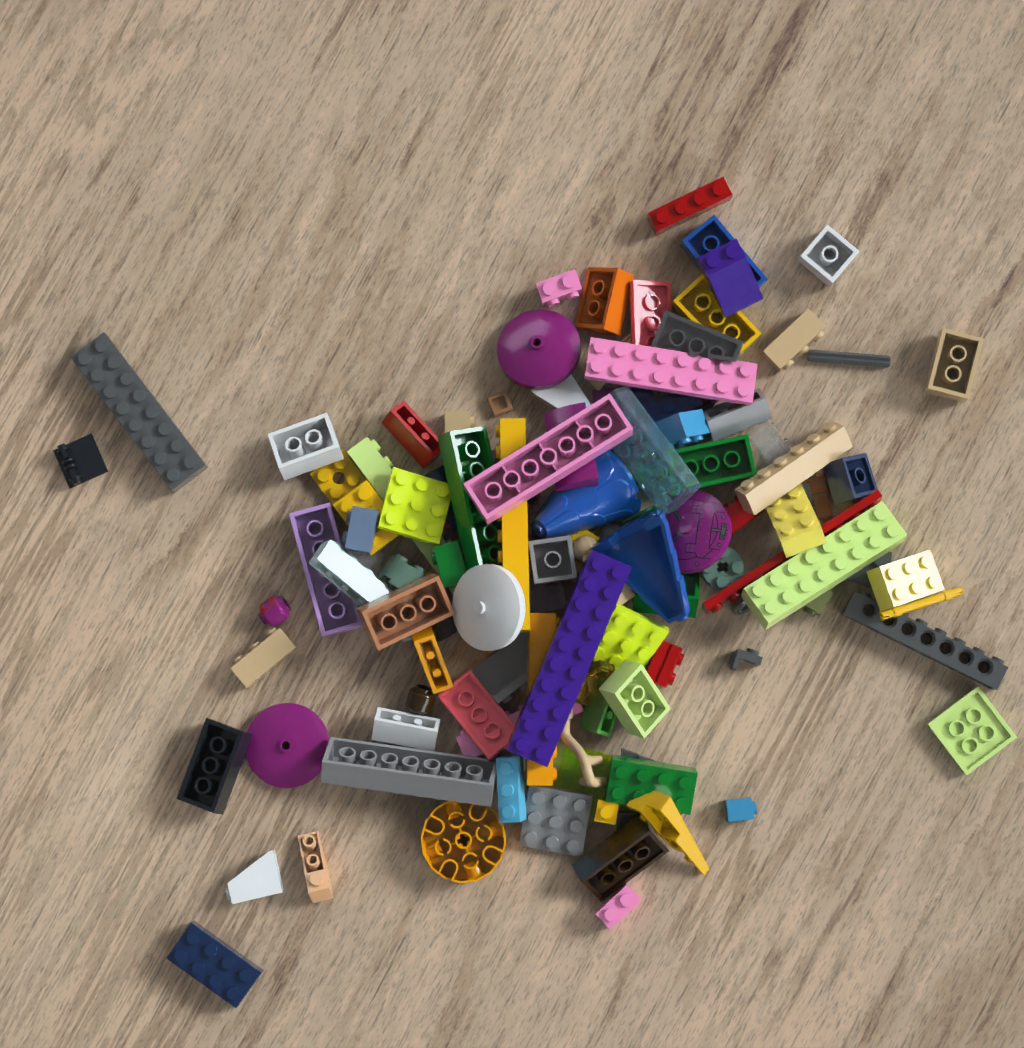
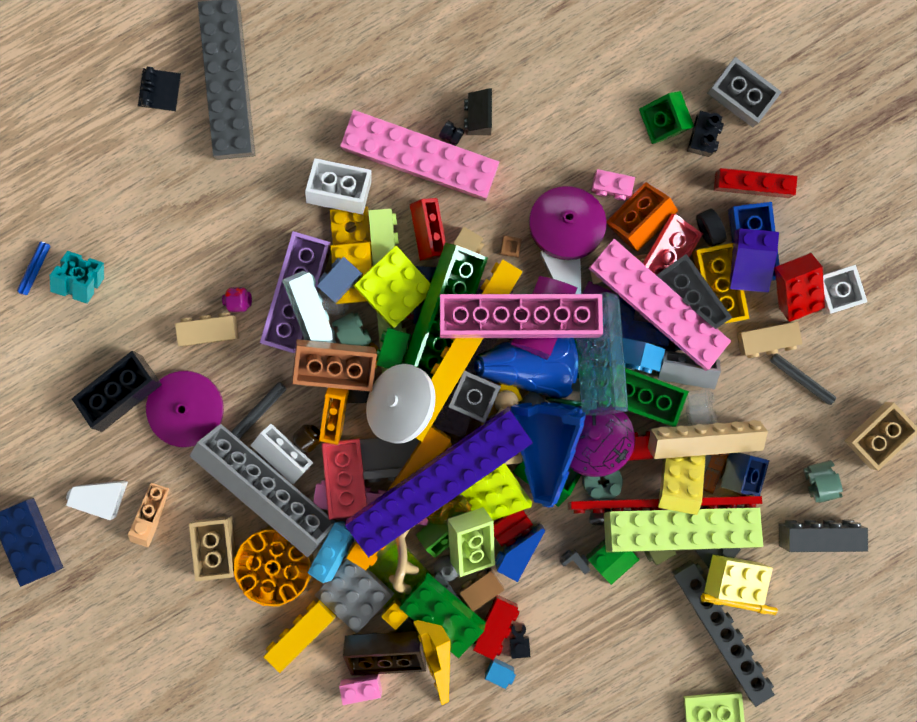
camera: 30 degrees right, 5 degrees up
(63, 701) = (33, 268): none -> blue axle
(112, 681) = (76, 277): none -> teal brick
(358, 702) = (259, 410): none -> dark grey axle
(363, 371) = (419, 155): none -> bright pink brick
(379, 333) = (451, 133): none -> black wheel
(394, 298) = (479, 112): none -> pearl dark grey slope
(396, 858) = (213, 548): none -> tan brick
(528, 892) = (299, 636): none -> yellow brick
(569, 196) = (666, 117): none -> green slope
(615, 189) = (705, 133): none -> black brick
(626, 130) = (744, 92): none -> light grey brick
(628, 742) = (445, 567): none -> light grey brick
(673, 740) = (481, 589): none -> medium nougat brick
(674, 271) = (711, 227): none -> black tyre
(685, 687) = (516, 556): none -> blue slope
(709, 767) = (496, 627): none -> red brick
(743, 772) = (519, 645): none -> black plate
(779, 639) = (611, 564): none -> green slope
(789, 276) = (800, 287): none -> red brick
(926, 440) = (824, 481): none -> sand green brick
(962, 489) = (823, 537): none -> dark grey brick

